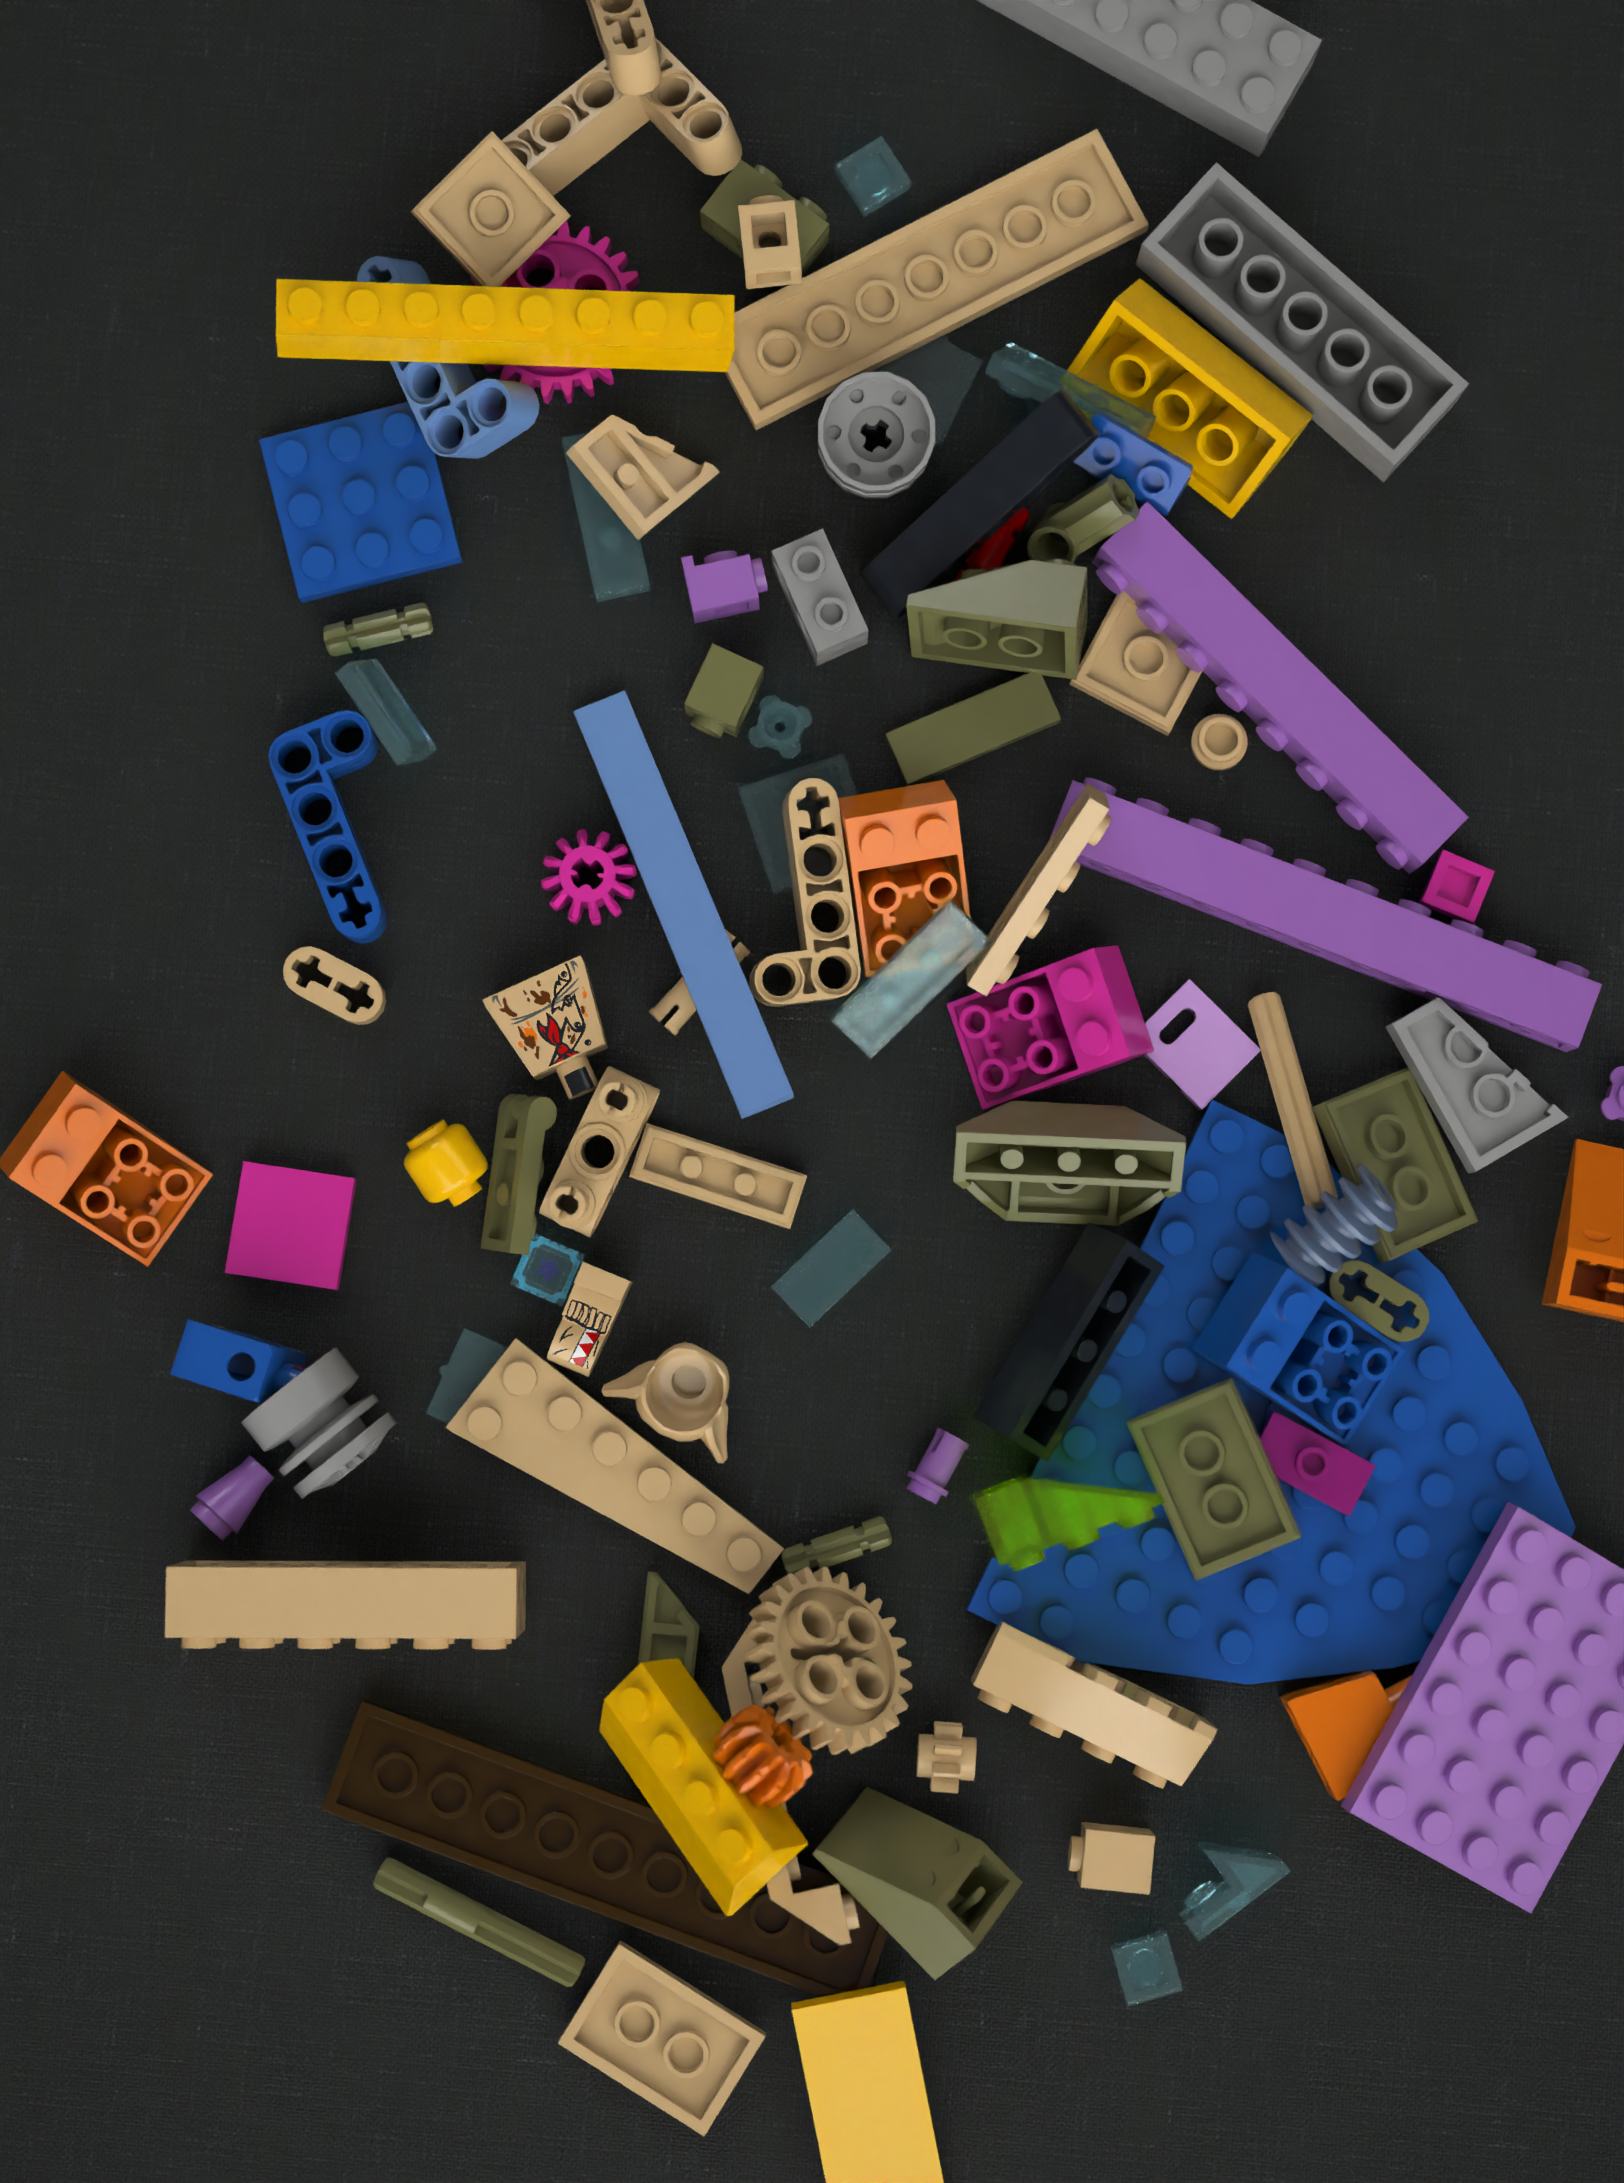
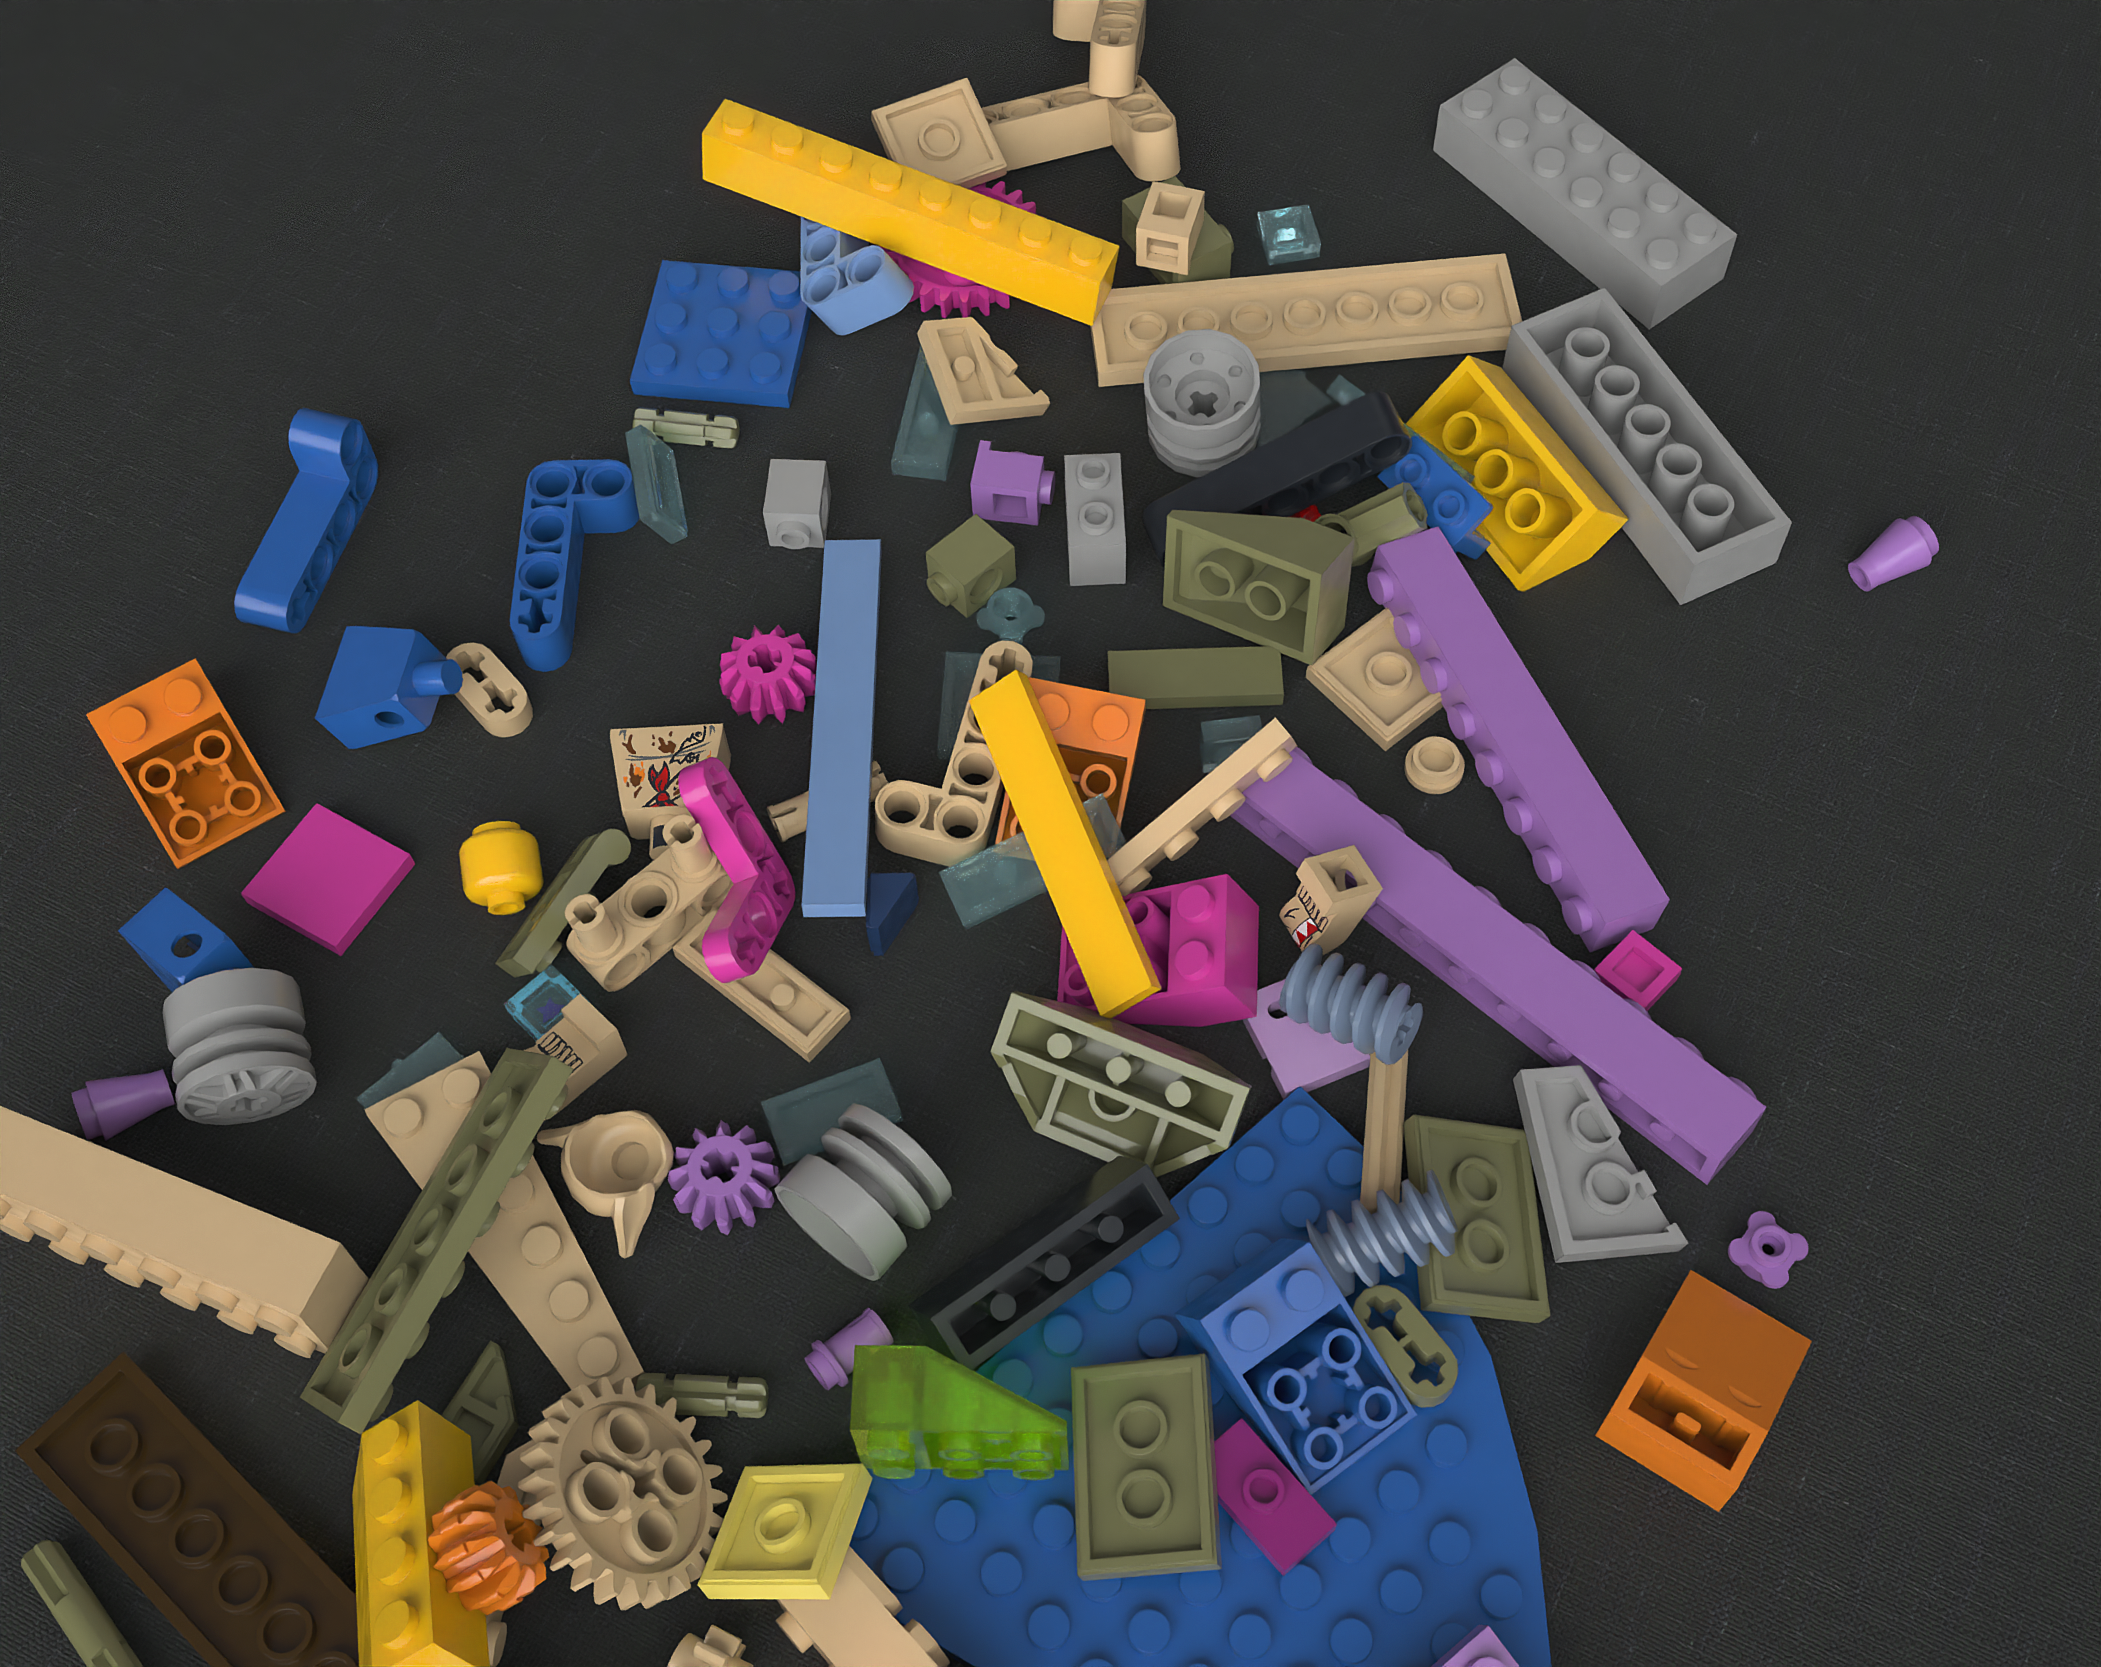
camera: 25 degrees right, 25 degrees down
(79, 885) = (312, 522): none -> blue beam
(249, 1027) = (384, 685): none -> blue torso
(531, 684) = (797, 503): none -> light grey brick
(579, 1519) = (434, 1238): none -> olive plate
(686, 1101) = (761, 881): none -> dark pink beam
(776, 1385) = (707, 1195): none -> medium lavender gear
(799, 1070) = (889, 906): none -> dark blue slope
(902, 1341) = (874, 1179): none -> light grey wheel
(937, 966) = (1064, 846): none -> yellow tile
(960, 1634) = (786, 1532): none -> light yellow tile
(1036, 795) = (1224, 737): none -> clear light blue plate
(1182, 932) = (1323, 907): none -> tan leg
(1235, 1024) = (1349, 1007): none -> sand blue piece
(1563, 356) = (1896, 552): none -> medium lavender cone

